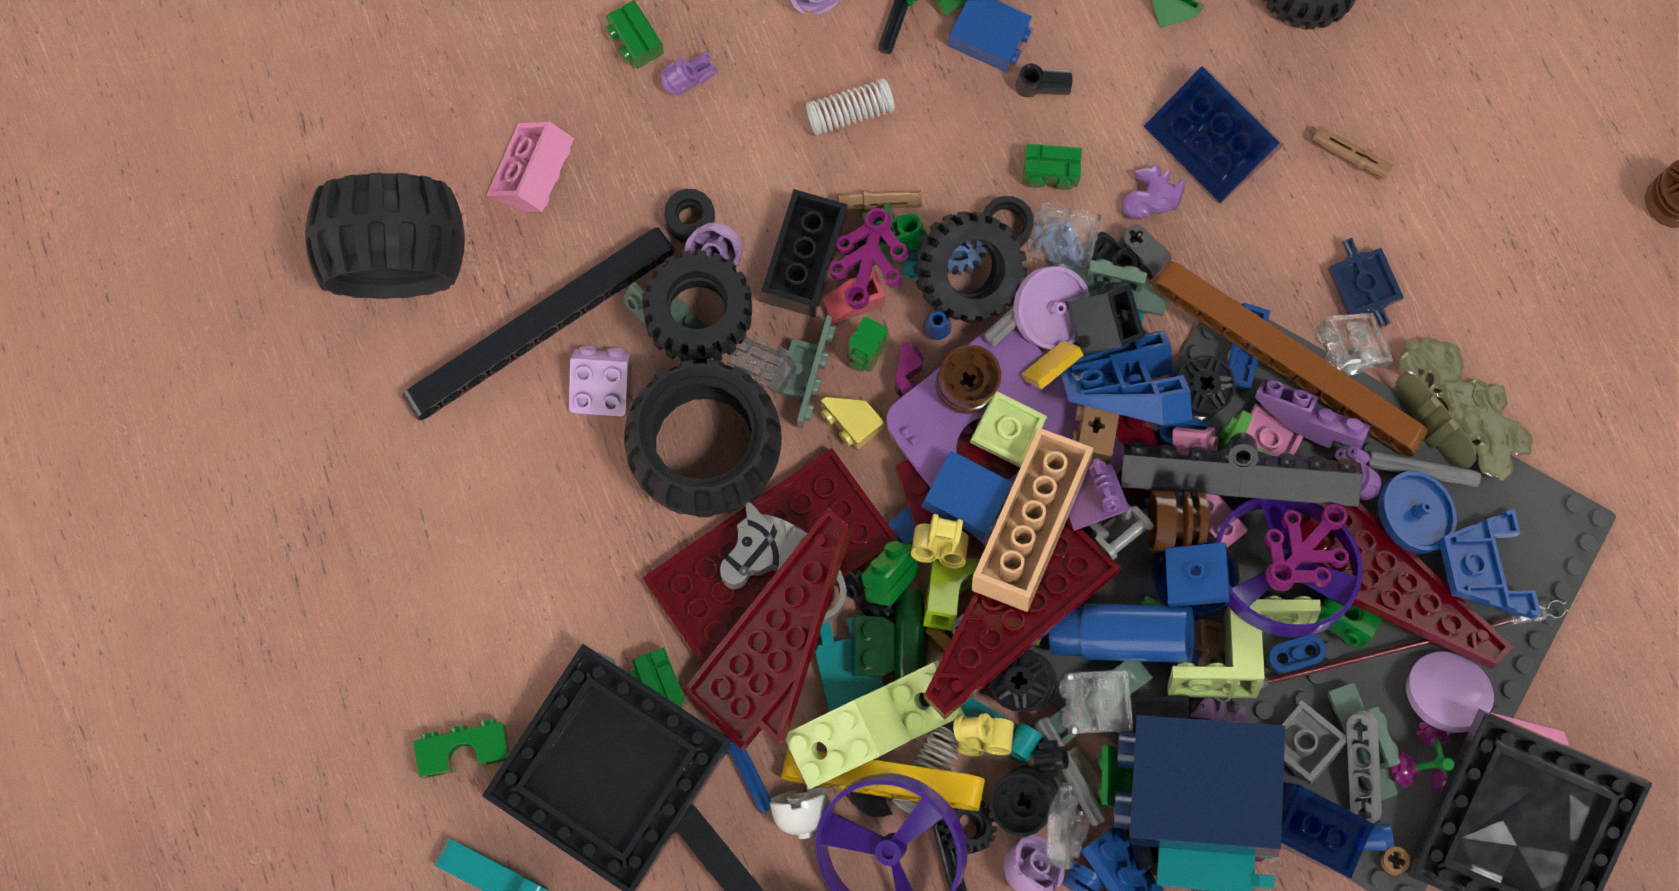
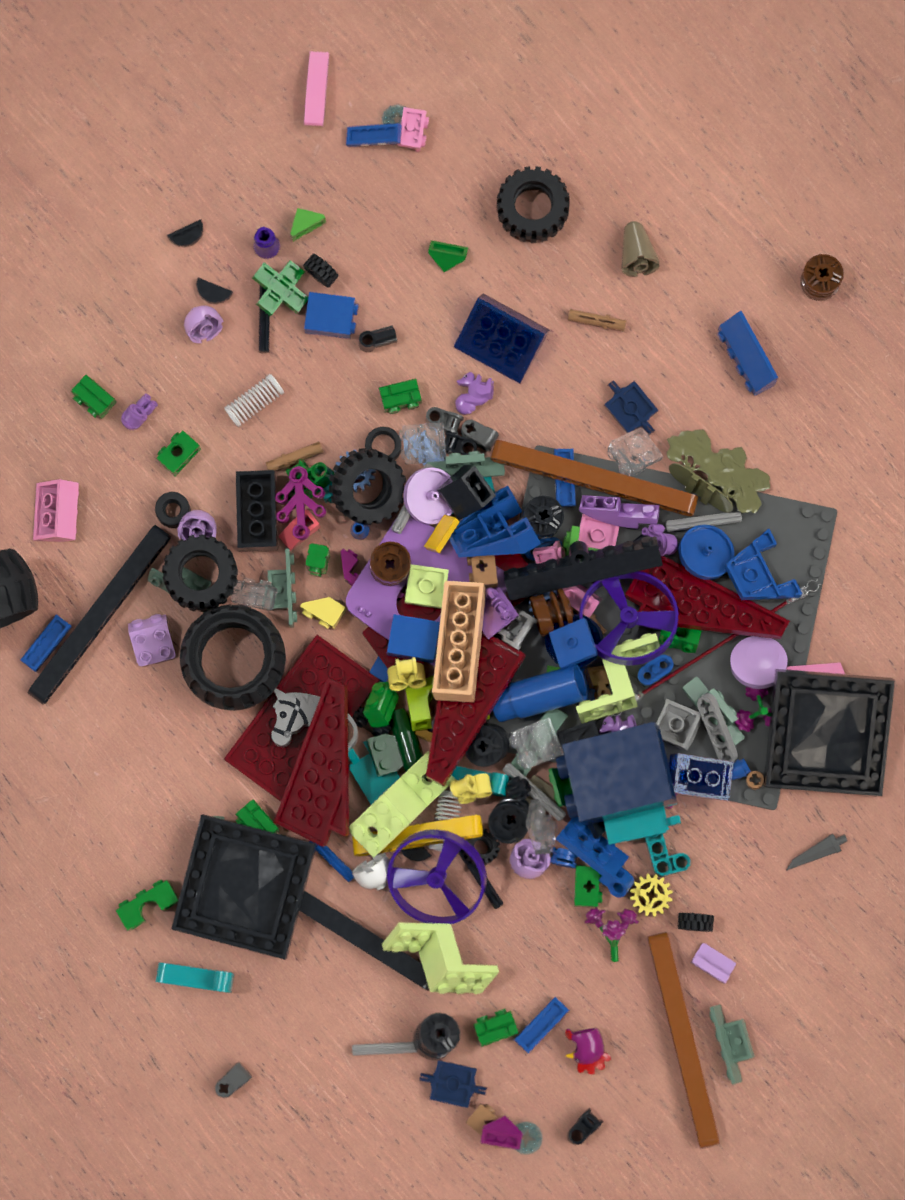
camera: 10 degrees left, 5 degrees up
(452, 338) = (46, 643): none -> blue plate
(718, 157) = (173, 463): none -> green brick
(1108, 213) = (445, 417): none -> dark grey piece
(1303, 551) = (636, 606): magenta plant -> none
(1436, 81) = (638, 252): none -> dark tan cone
(1552, 261) = (747, 353): none -> blue slope

